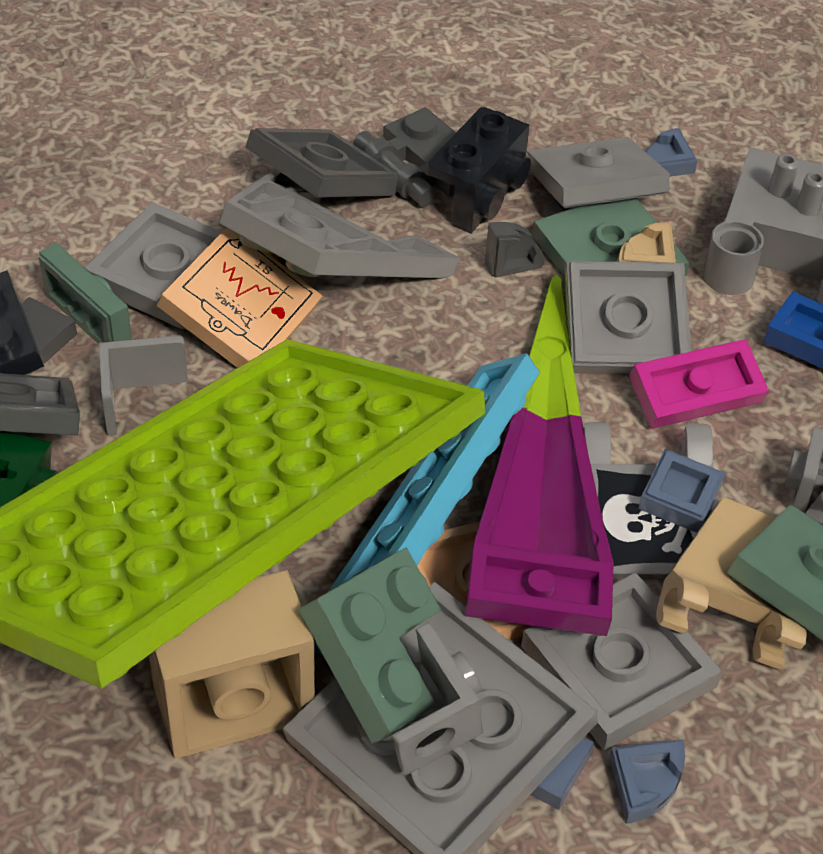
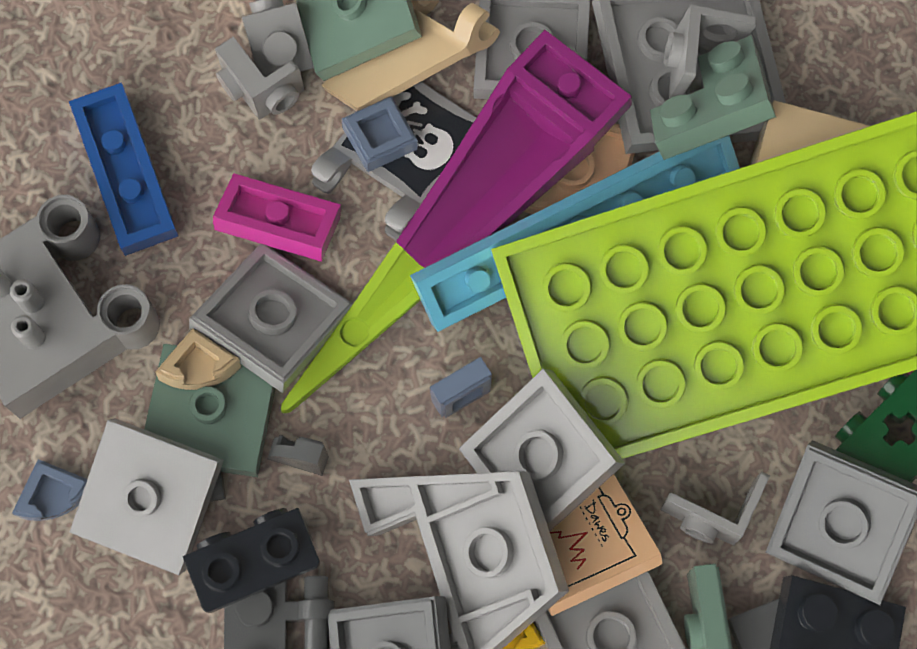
camera: 140 degrees left, 25 degrees up
(318, 309) = (552, 439): none -> light grey plate
(426, 341) = (461, 388): none -> sand blue tile

